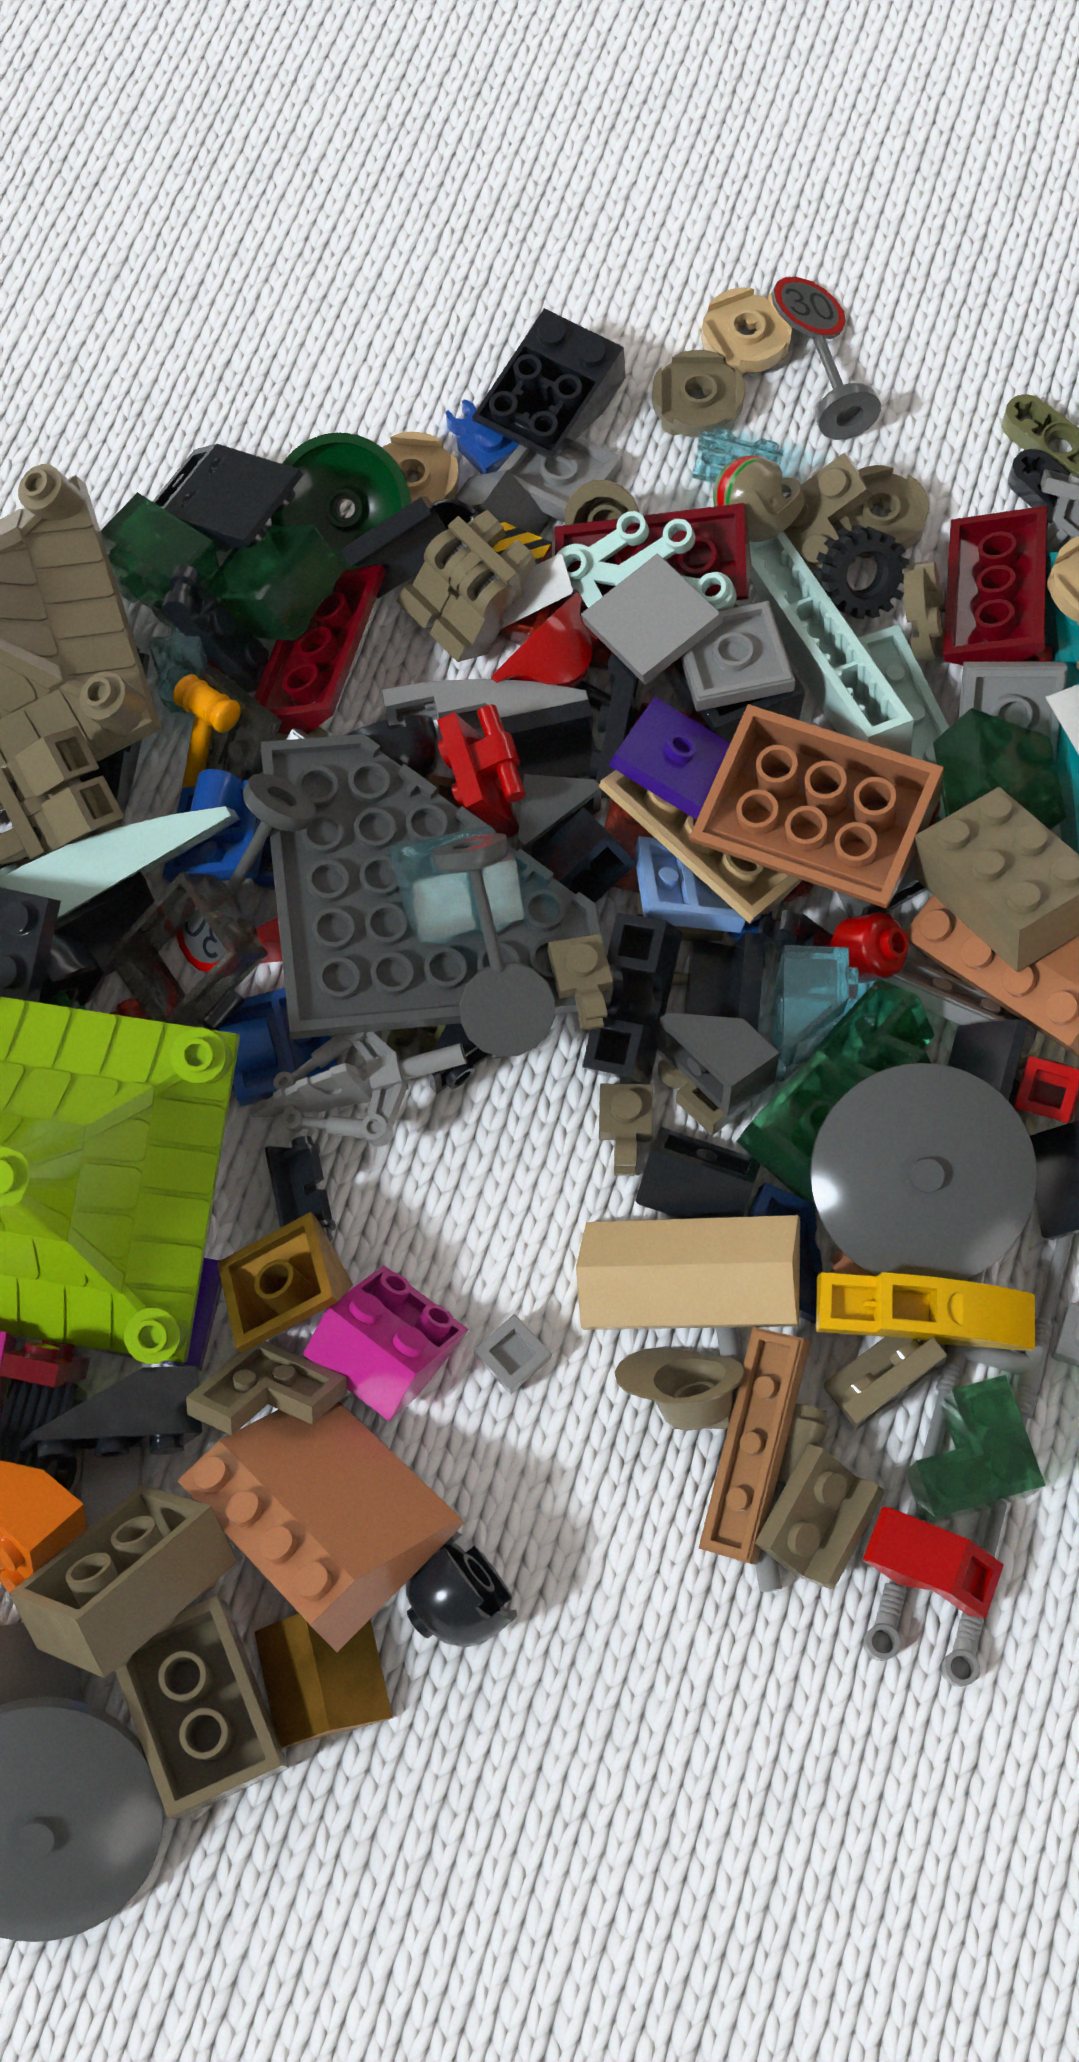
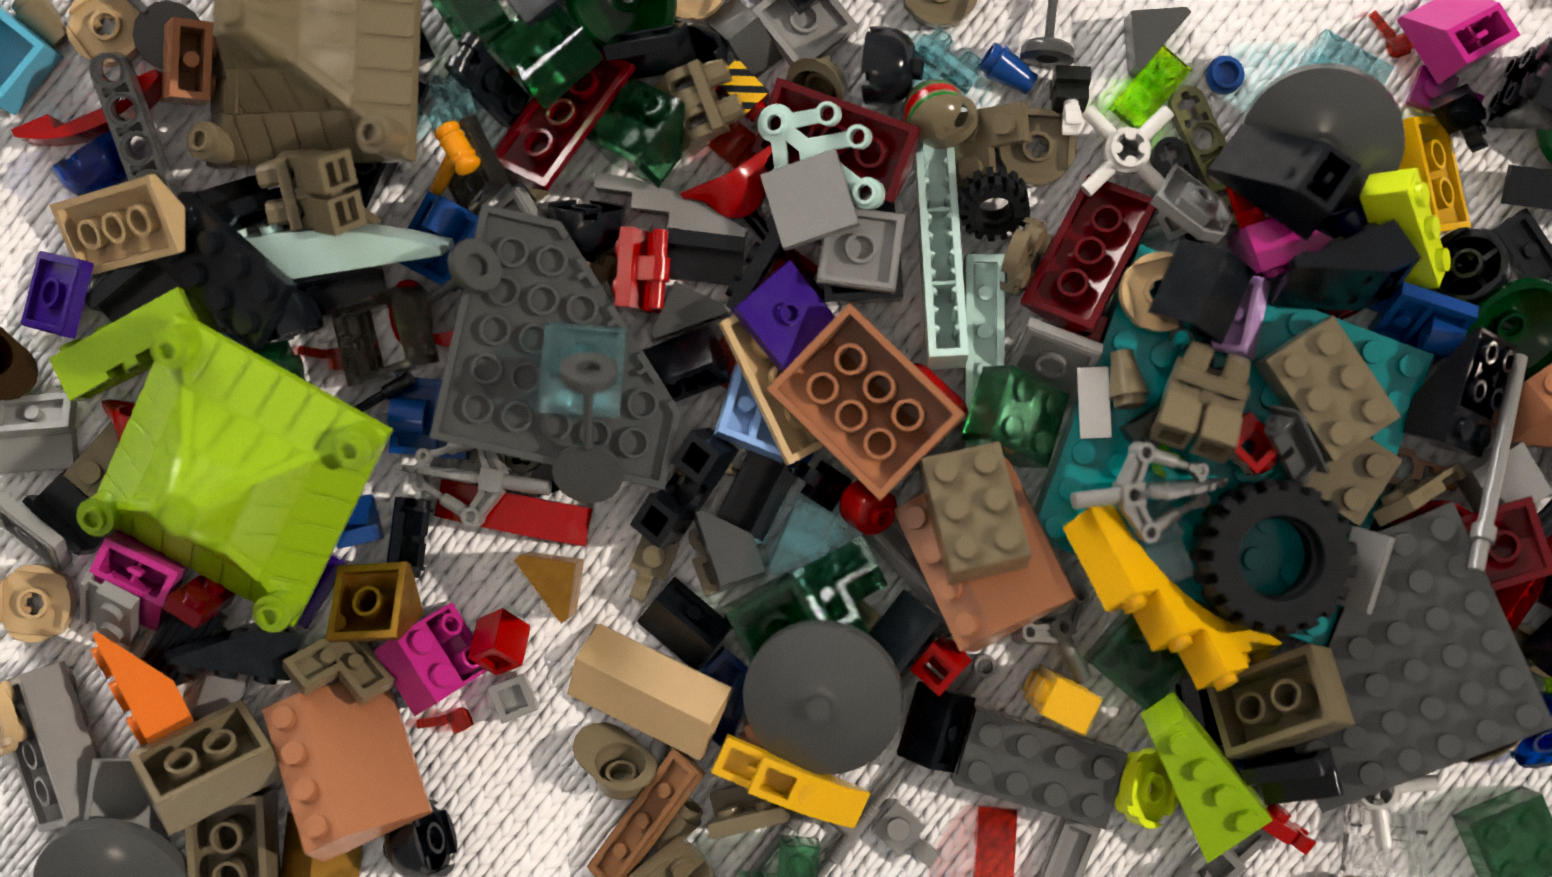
camera: 15 degrees right, 20 degrees up
(233, 1209) = (363, 524): none -> blue panel
(420, 628) = (641, 131): none -> clear green slope
(433, 1117) = (524, 515): none -> red slope
(446, 1411) = (458, 720): none -> clear red hand
(466, 1287) = (499, 642): none -> red panel
(509, 1168) = (555, 580): none -> pearl gold slope
(542, 587) = (745, 132): white sticker -> none
(582, 973) = (649, 463): dark tan plate -> none
(680, 468) = (889, 66): none -> black cylinder
(809, 443) = (1007, 68): none -> blue cone
(892, 441) = (1070, 95): none -> pearl dark grey piece
(946, 359) = (1147, 33): none -> dark grey slope
(976, 416) = (1150, 88): none -> clear neon green slope
(983, 476) = (1137, 139): none -> white bar
(1051, 376) = (1224, 75): none -> blue plate

